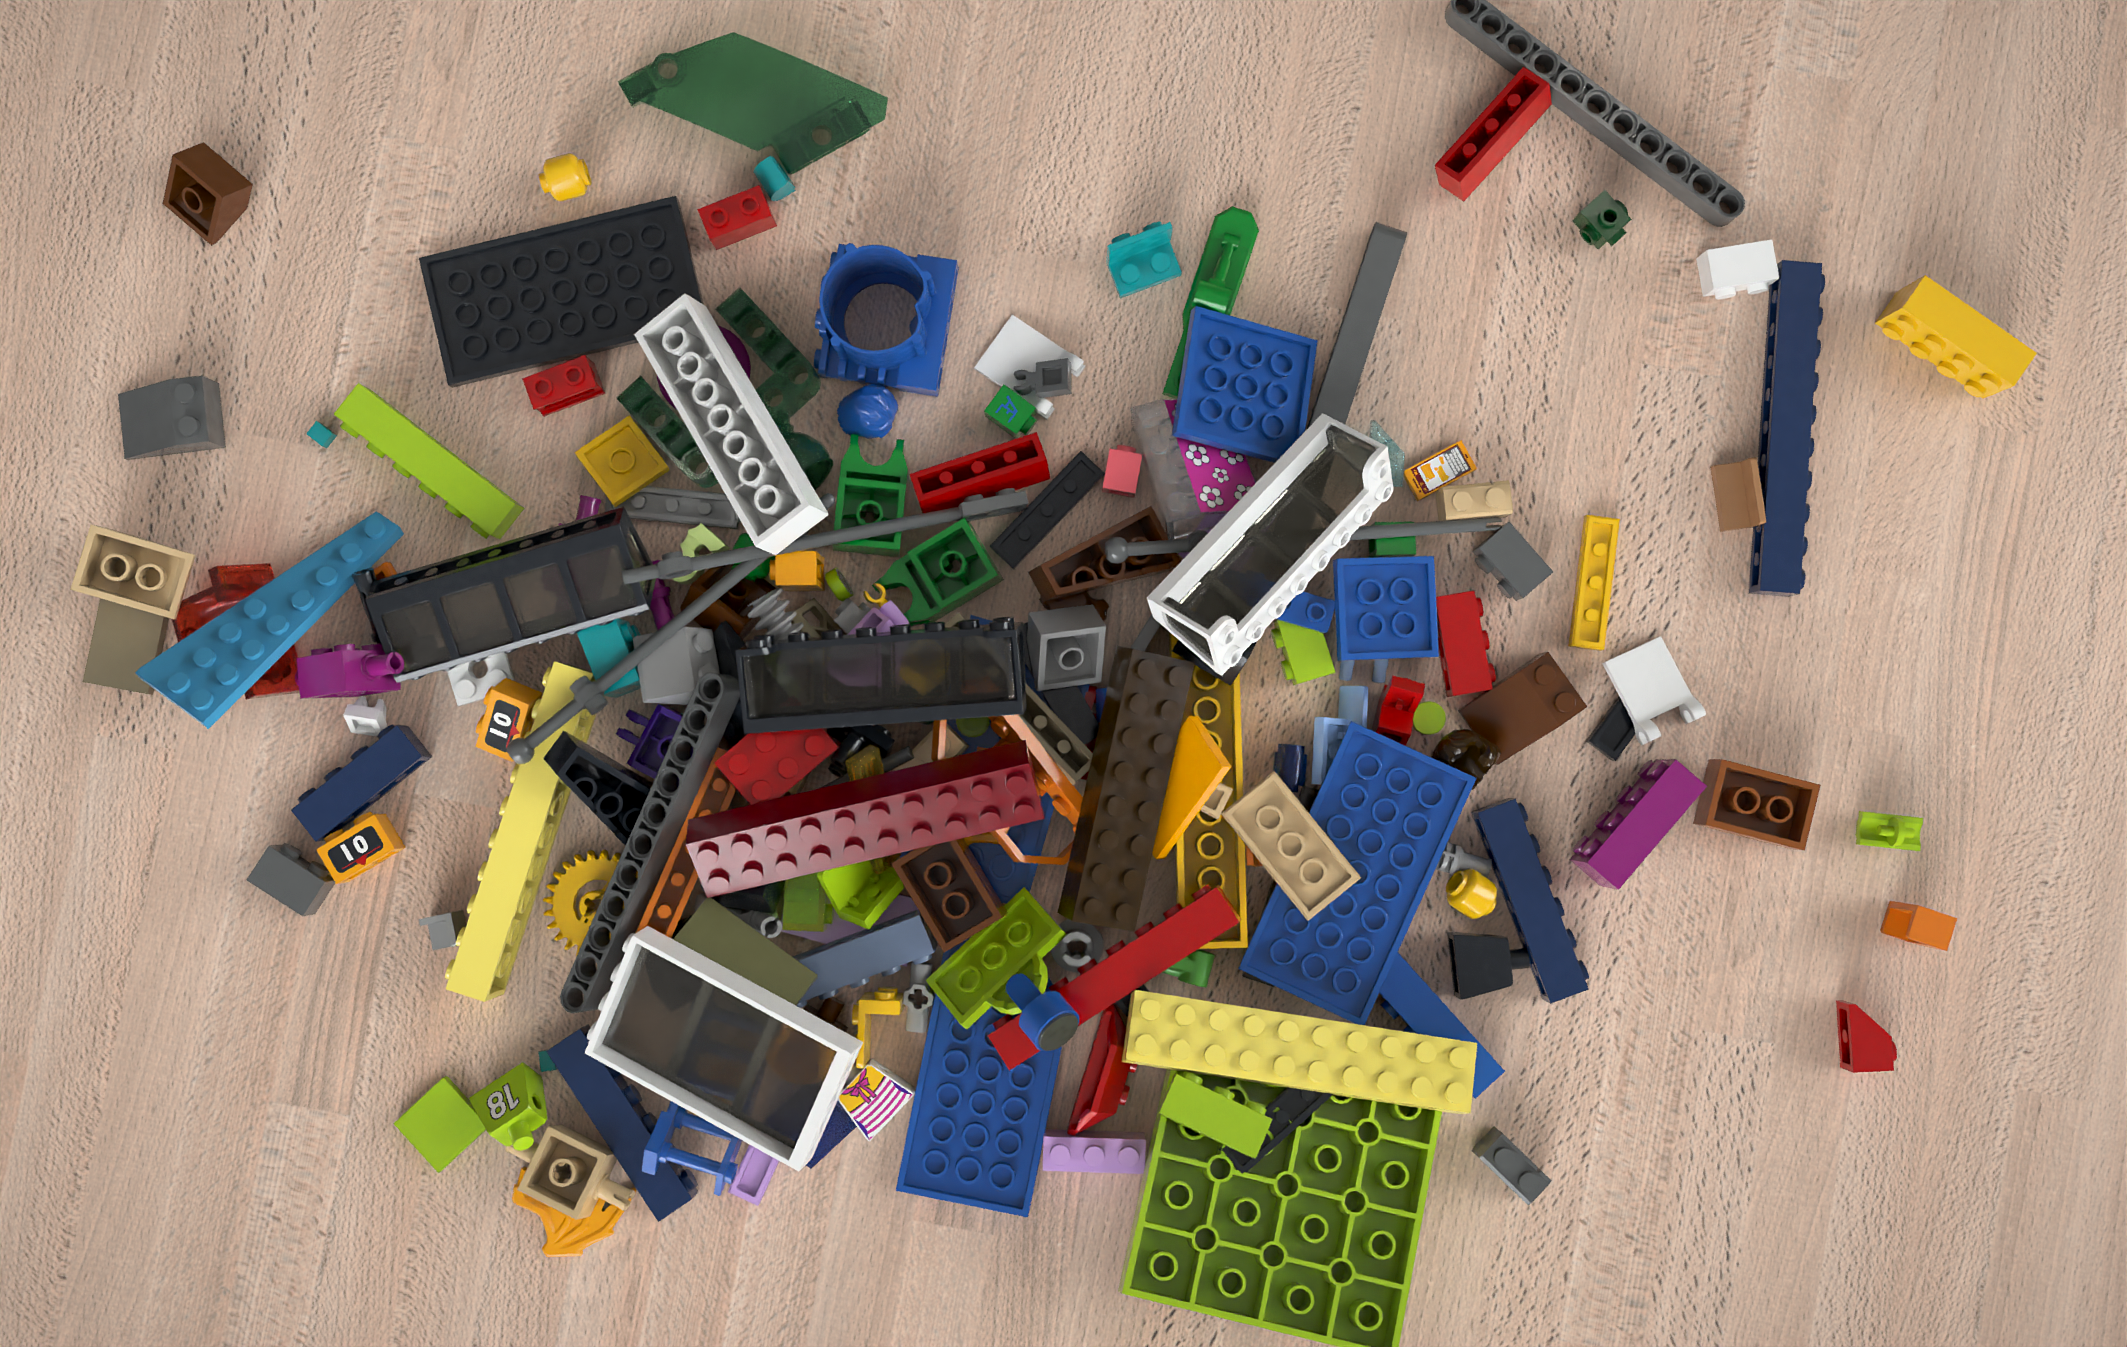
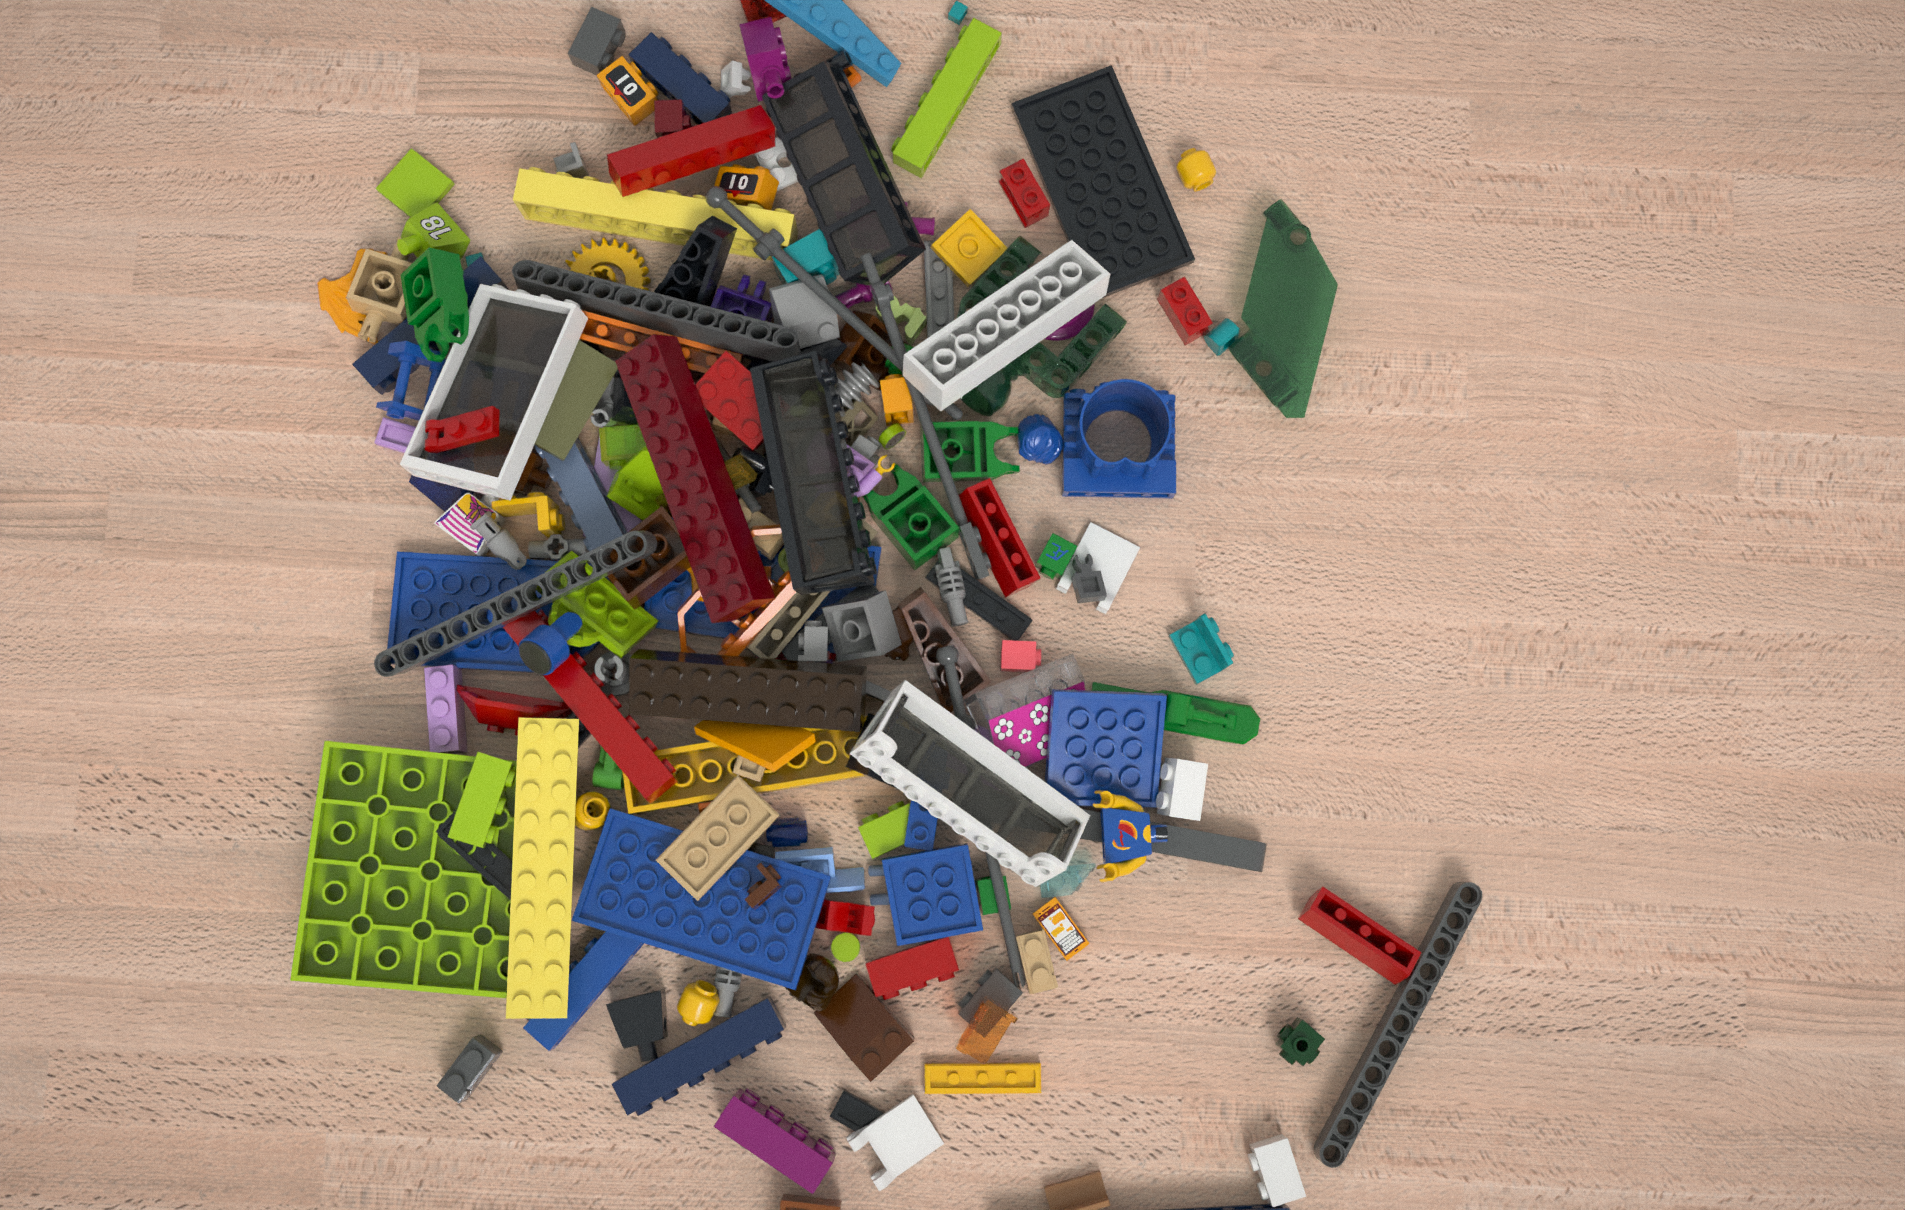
camera: 80 degrees right, 5 degrees down
(417, 796) = (670, 117): none -> dark red brick
(454, 776) = (691, 150): none -> red brick
(600, 1107) = (436, 301): none -> green brick
(767, 1090) = (462, 429): none -> red plate
(903, 1064) = (499, 541): none -> light grey piece
(991, 1067) = (527, 602): none -> dark grey beam
(1029, 538) = (951, 586): none -> light grey hinge
(1078, 705) = (813, 642): none -> light grey brick
(1236, 988) = (598, 809): none -> yellow head
(1301, 307) = (1182, 788): none -> white brick
(1350, 377) = (1125, 835): none -> torso
(1361, 801) = (760, 891): none -> reddish brown bracket
(1546, 567) = (985, 1030): none -> clear orange panel

